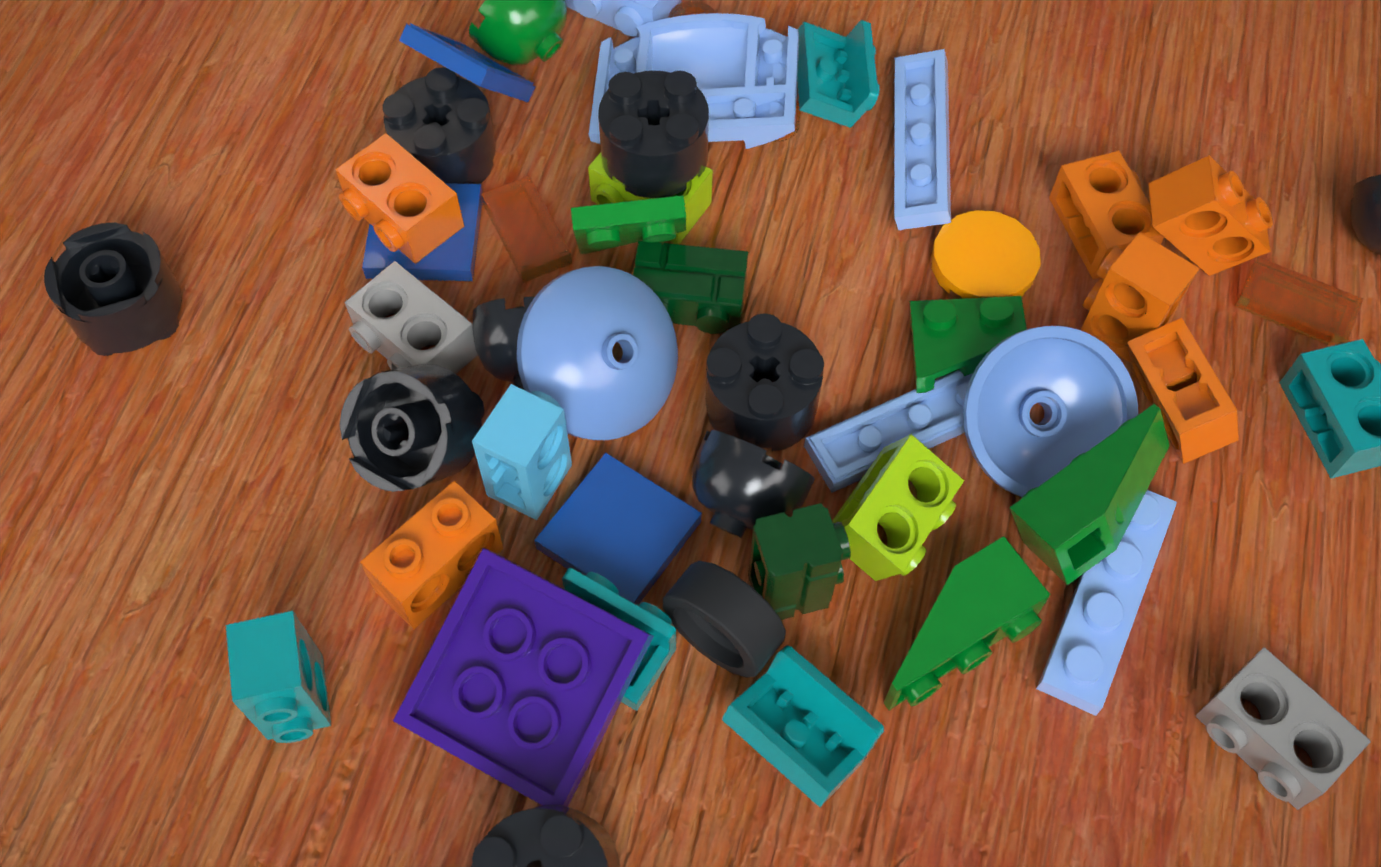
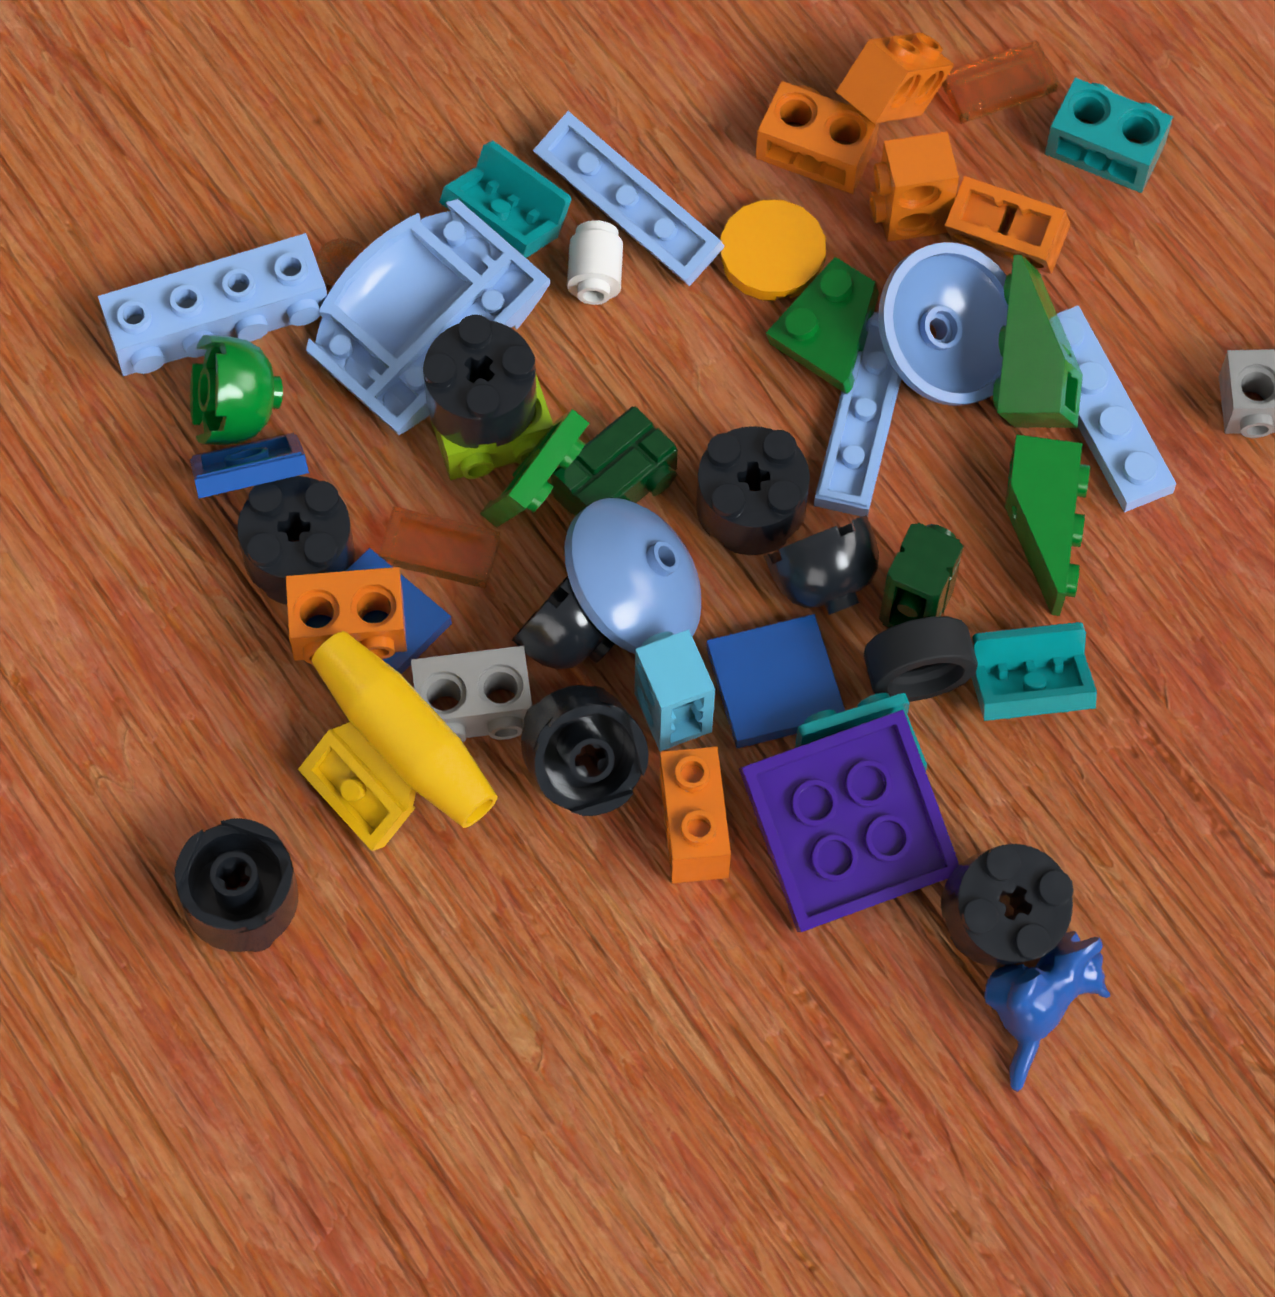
camera: 50 degrees left, 5 degrees up
(278, 677) = (717, 976): teal brick -> none
(304, 295) = (388, 749): none -> yellow plate
(848, 154) = (595, 262): none -> white brick
(886, 500) = (928, 479): lime brick -> none

